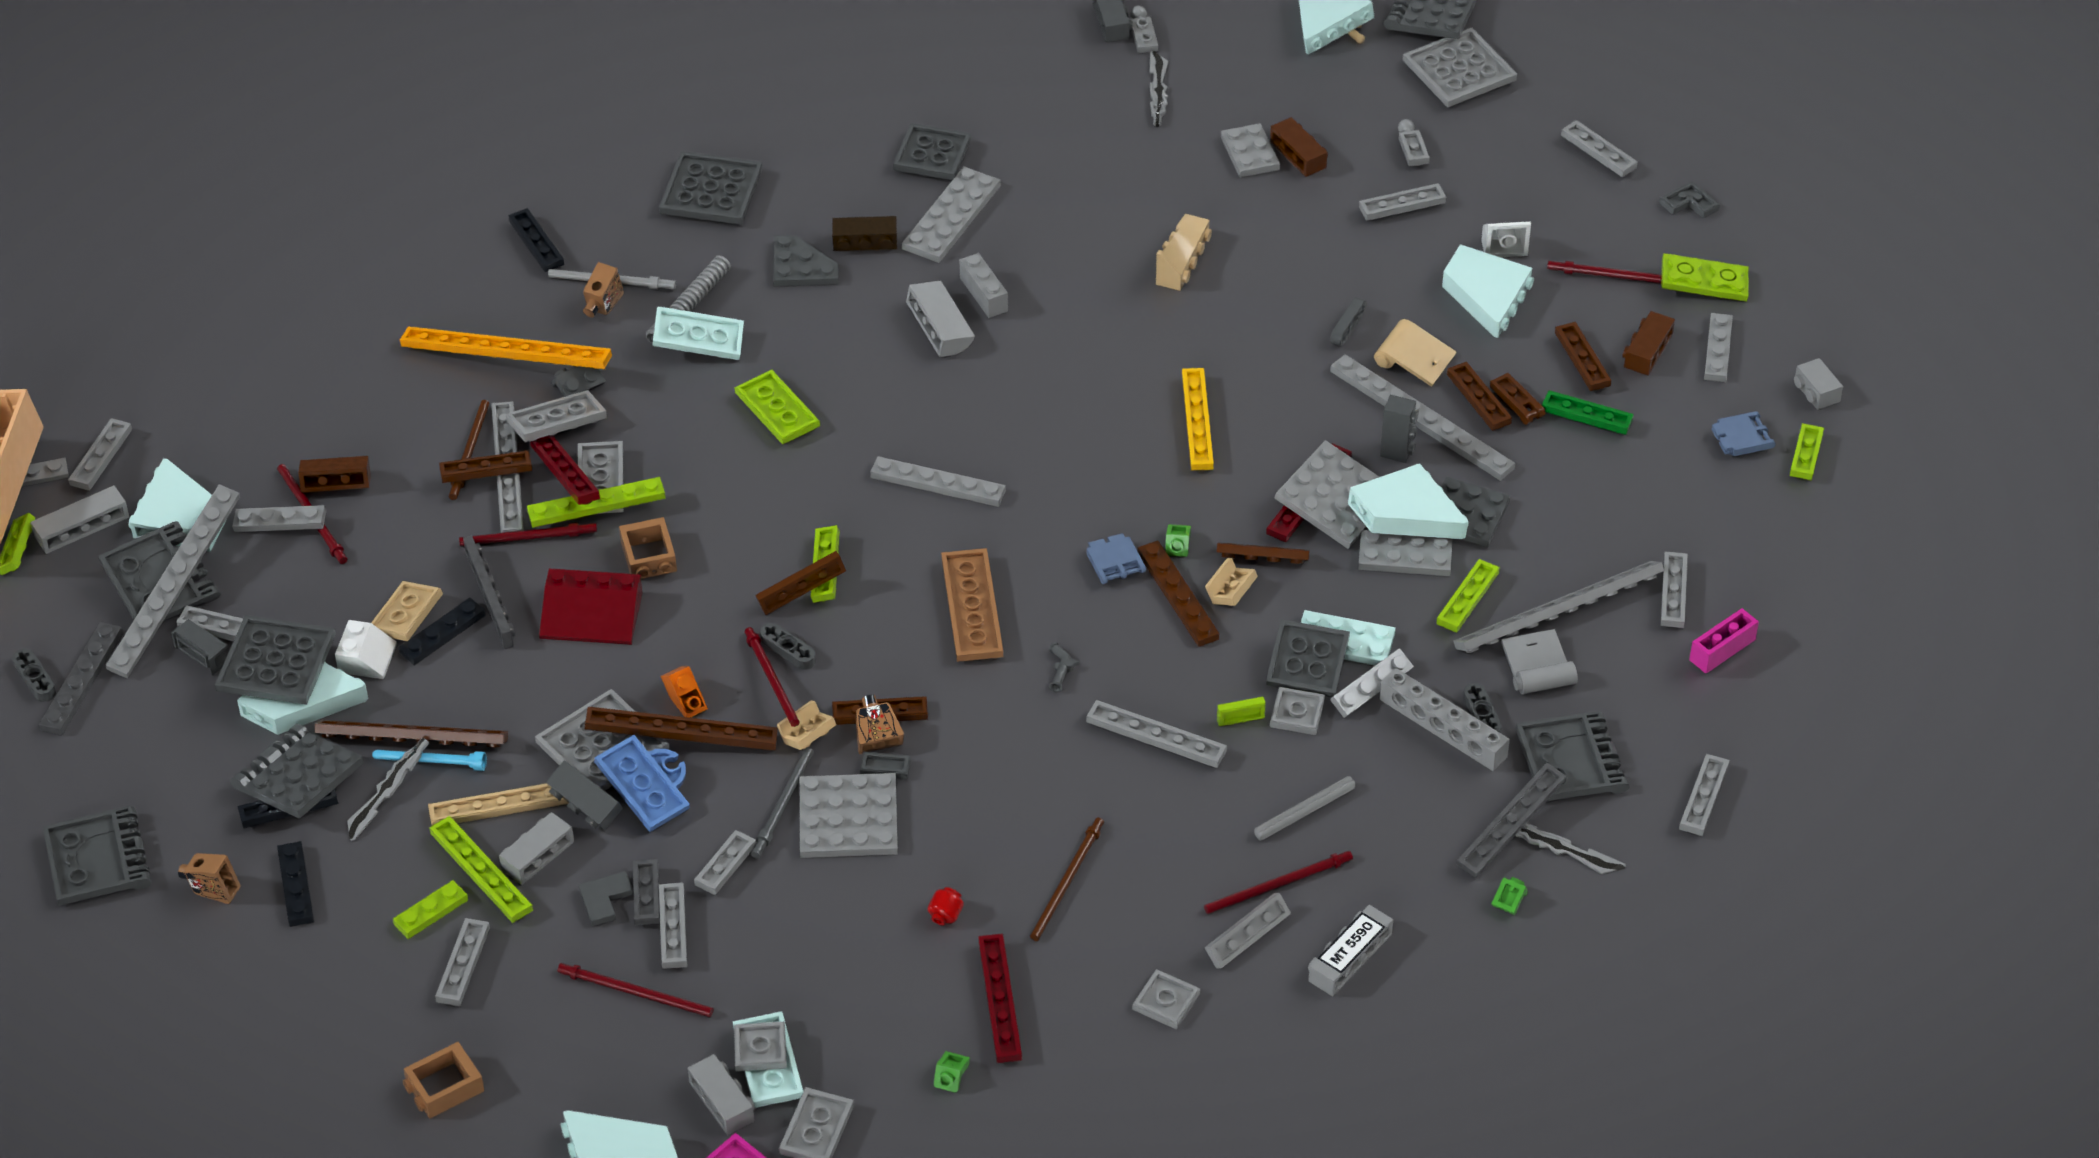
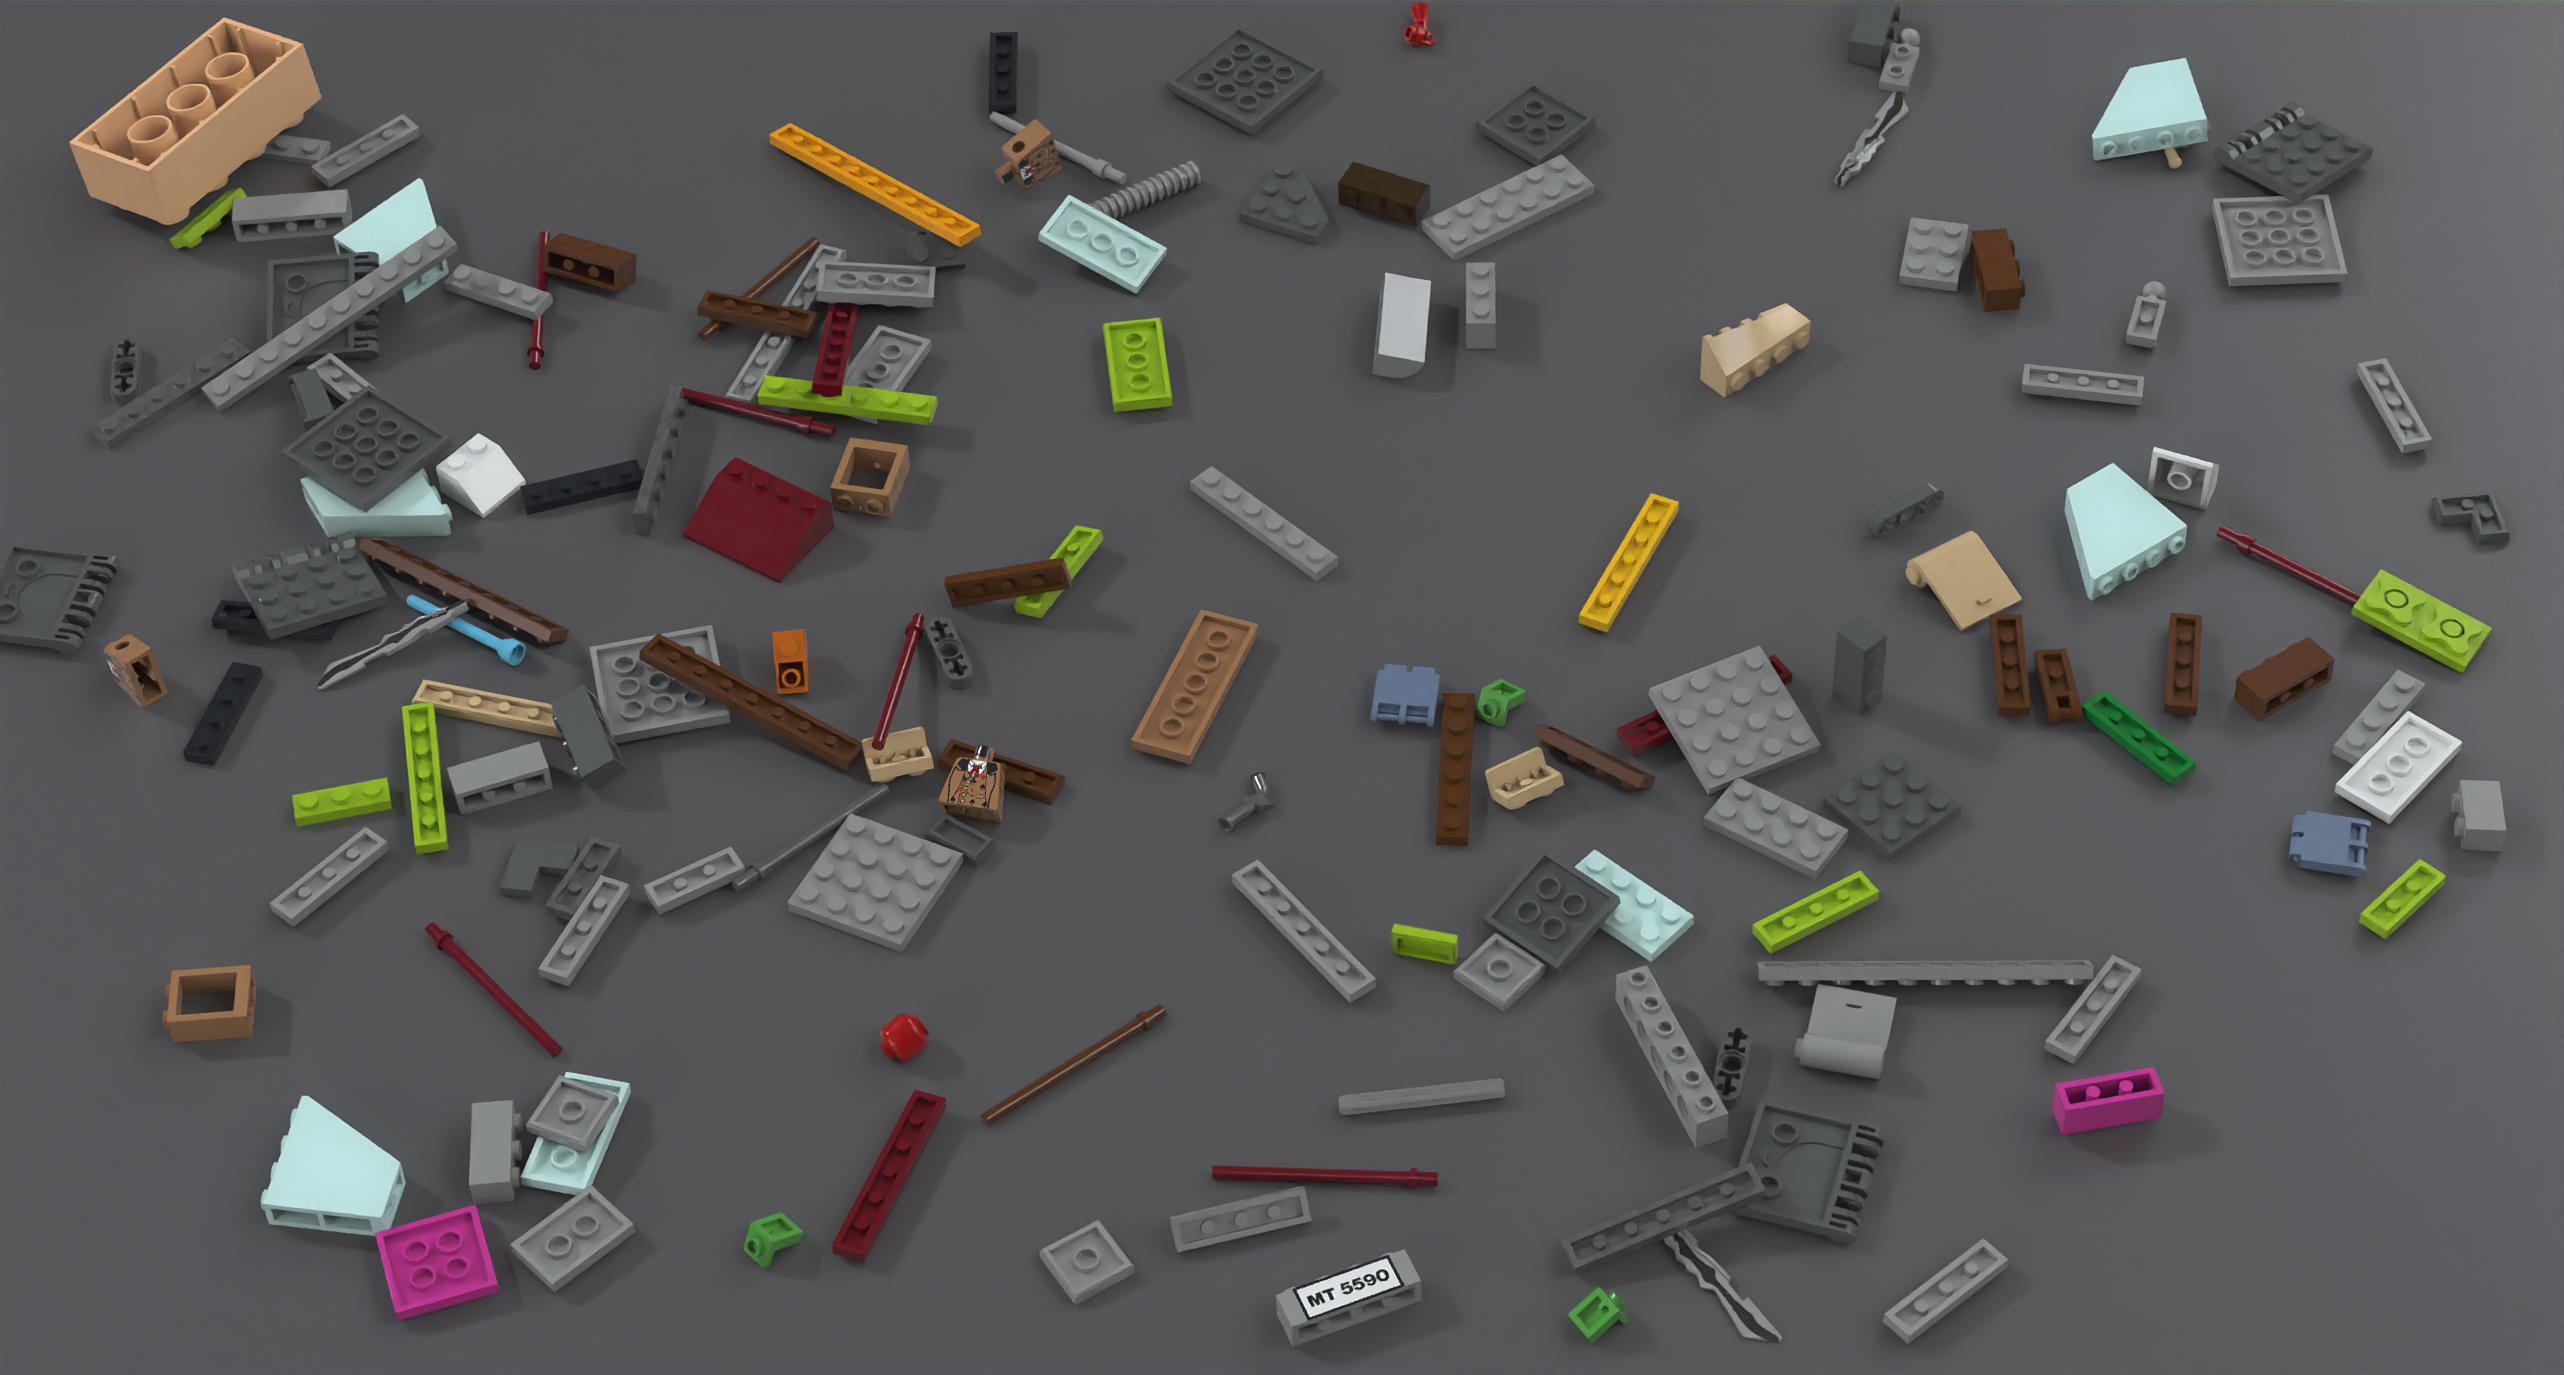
camera: 30 degrees right, 0 degrees up
(406, 609) = (557, 447): tan tile -> none
(645, 780) = (671, 747): medium blue plate -> none
(807, 116) = (1416, 33): none -> red piece
(1369, 683) = (1599, 975): light grey plate -> none
(1407, 505) = (1806, 766): light aqua slope -> none
(1427, 421) = (1920, 667): light grey plate -> none
(1751, 372) = (2398, 767): none -> white plate

